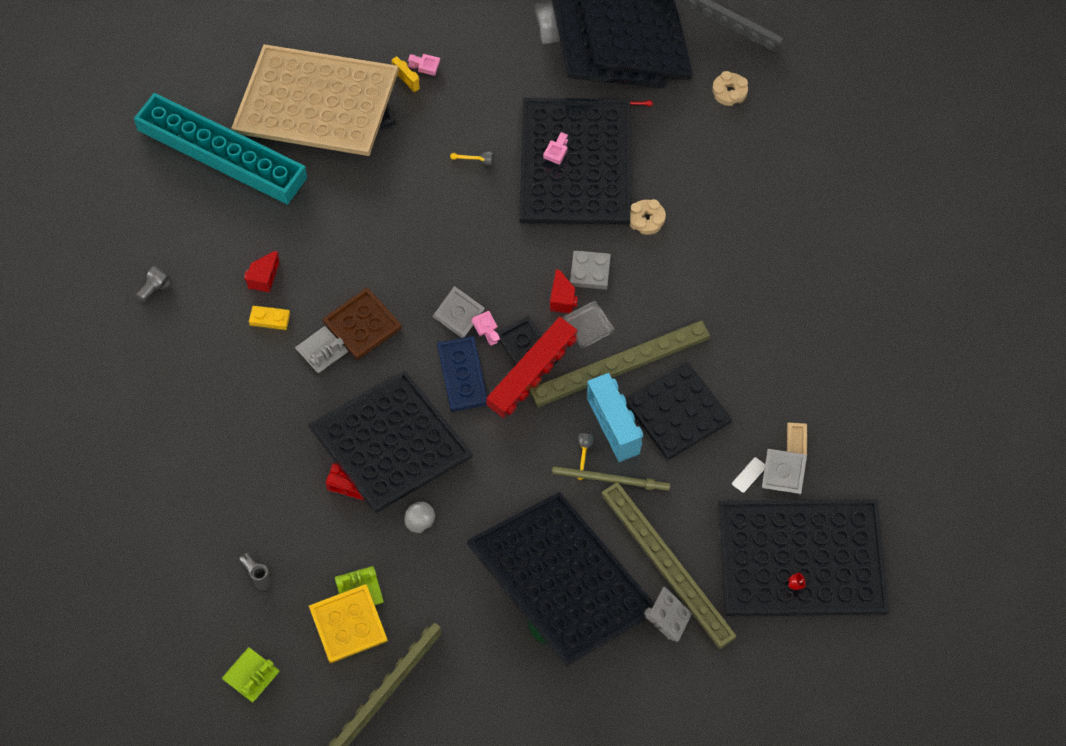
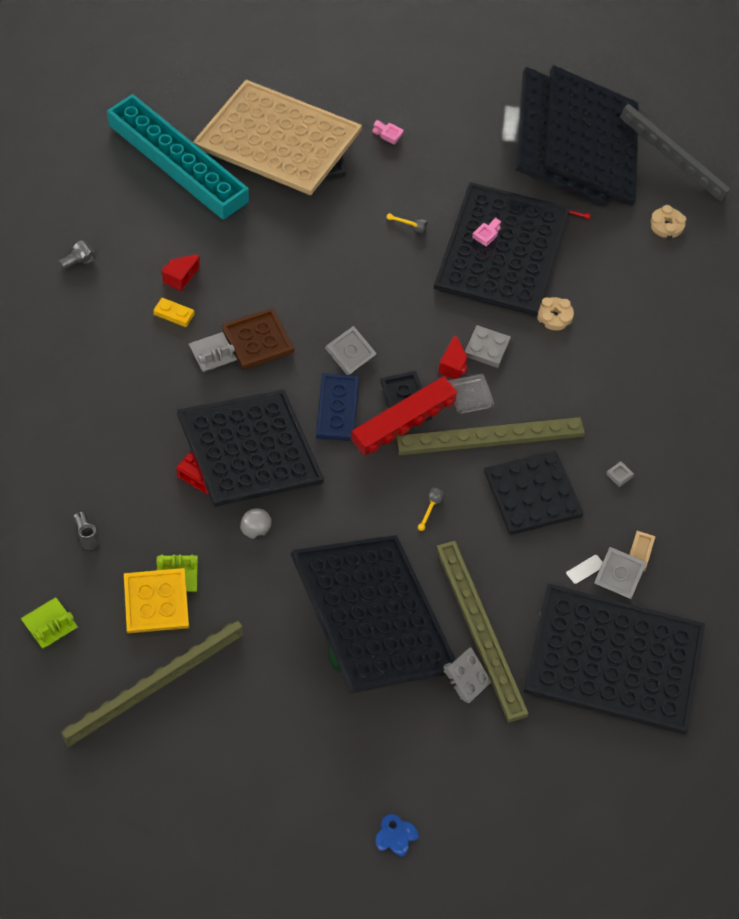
camera: 10 degrees right, 5 degrees down
(410, 78) = (370, 140): yellow plate -> none
(486, 325) = (372, 368): bright pink plate -> none
(614, 417) = (469, 480): medium azure brick -> none
(649, 483) = (485, 551): olive bar -> none
(755, 368) = (620, 474): none -> light grey tile
(796, 581) = (602, 677): red hinge -> none

